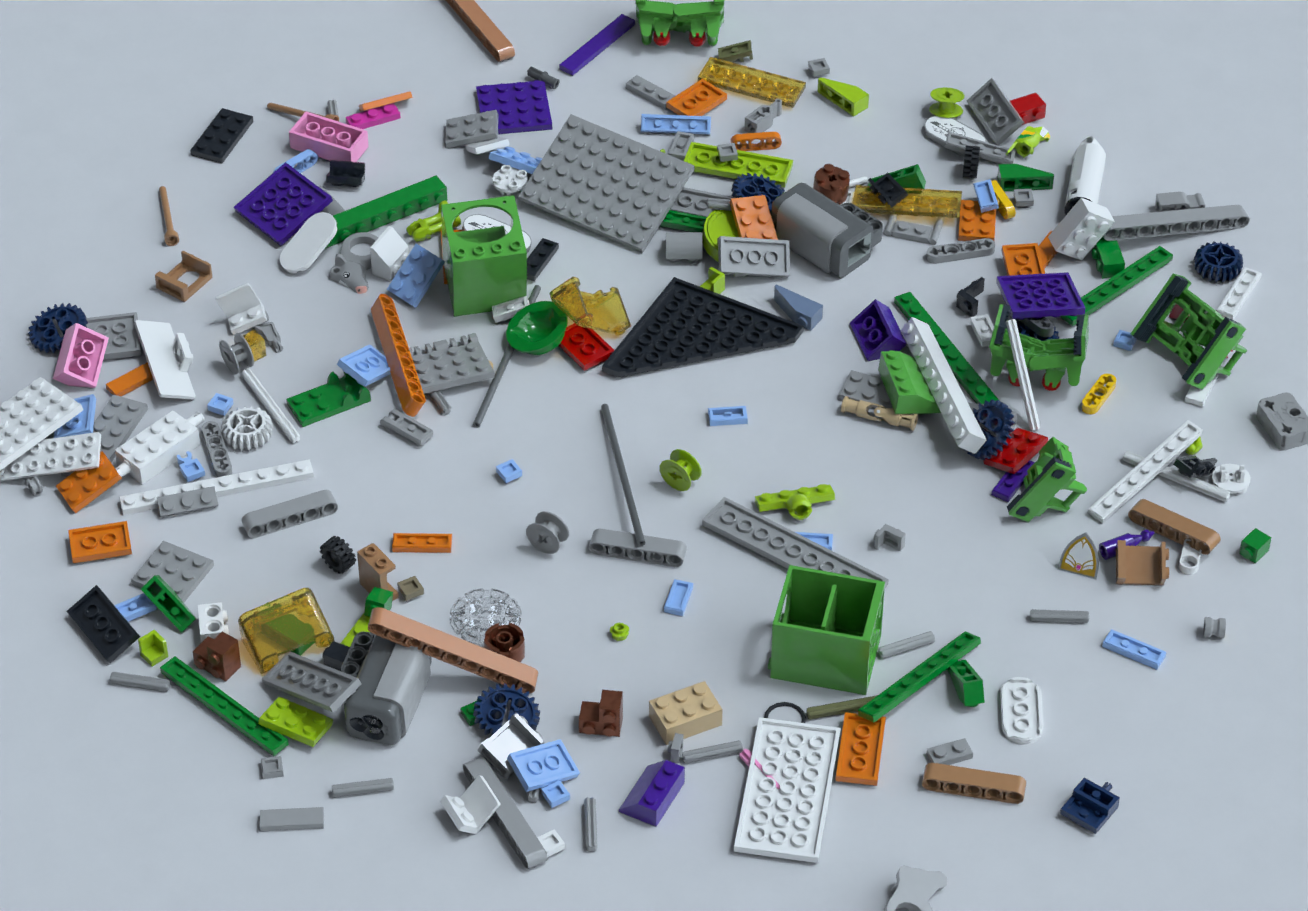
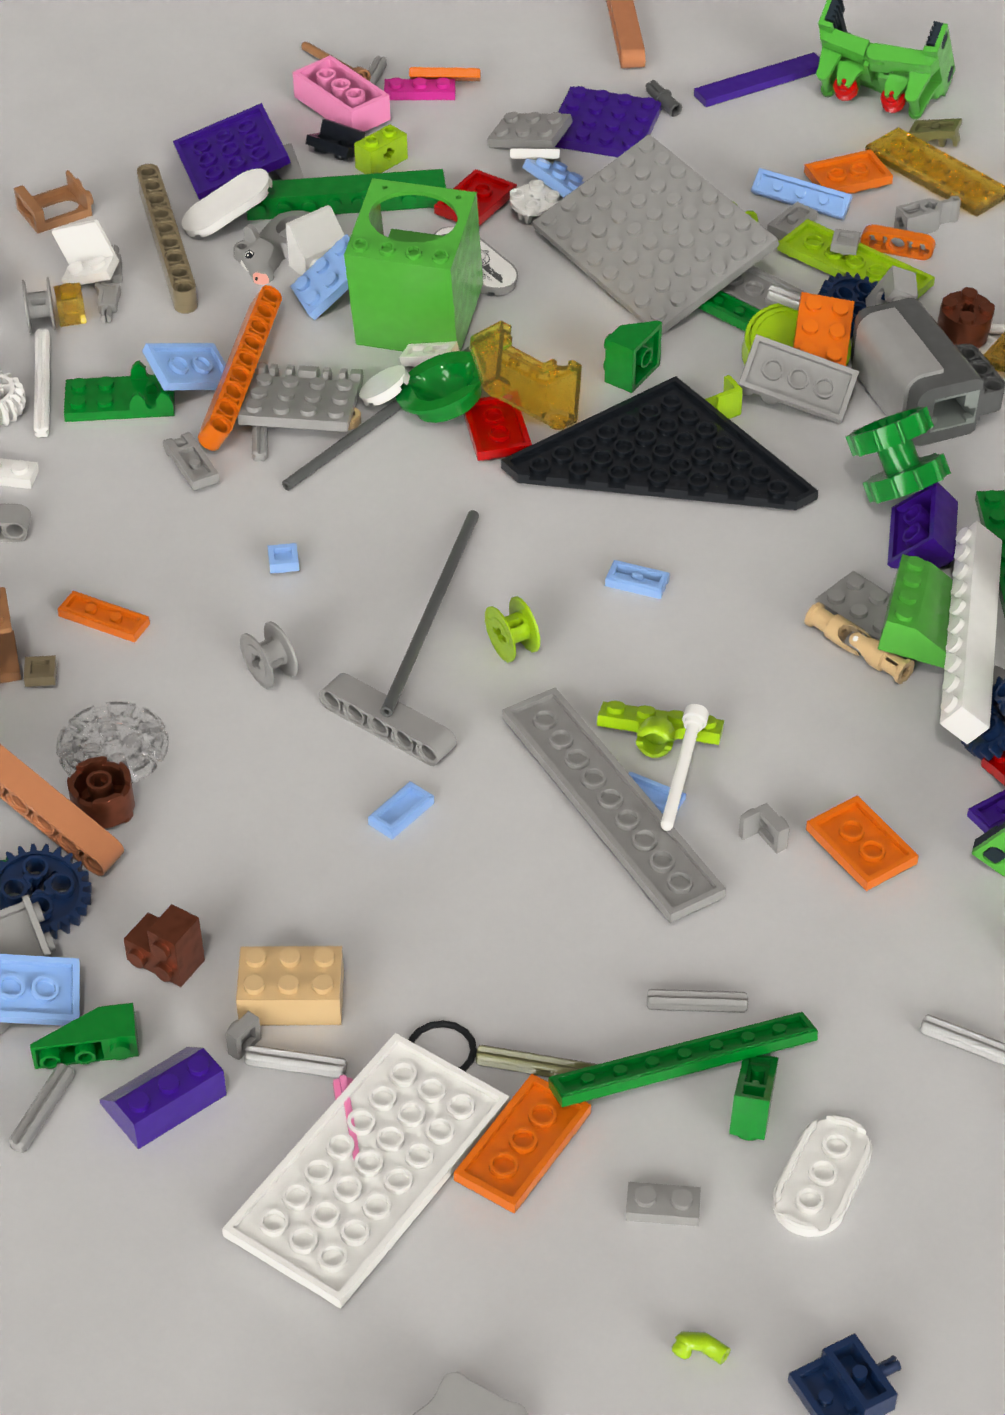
camera: 25 degrees right, 0 degrees up
(171, 236) = (75, 154): medium nougat piece -> none
(221, 135) = (223, 63): black plate -> none
(281, 279) = (167, 239): none -> dark tan beam
(305, 160) = (291, 121): light blue beam -> none
(382, 173) = (381, 150): none -> lime brick
(426, 227) = (422, 222): lime piece -> none
(467, 186) = (491, 195): none -> red plate
(497, 339) = (384, 385): none -> white tile
(540, 257) = (510, 304): black plate -> none
(555, 794) = (18, 1039): light blue plate -> none
(597, 776) = (94, 1037): none -> green slope
(619, 631) = (283, 830): lime plate -> none
(640, 271) = (632, 354): none -> green slope
(649, 91) = (791, 147): light grey plate -> none
(683, 246) = (712, 341): light grey brick -> none
(787, 177) = (895, 285): none -> light grey brick
(798, 308) = (829, 469): sand blue slope -> none
(819, 490) = (694, 720): none -> white piece
(827, 630) = (576, 938): bright green container -> none
(851, 298) = (902, 466): none -> green piece
(945, 529) = (862, 842): none -> orange plate
(974, 783) = (671, 1271): medium nougat beam -> none
(1009, 811) = (702, 1342): none -> lime arm

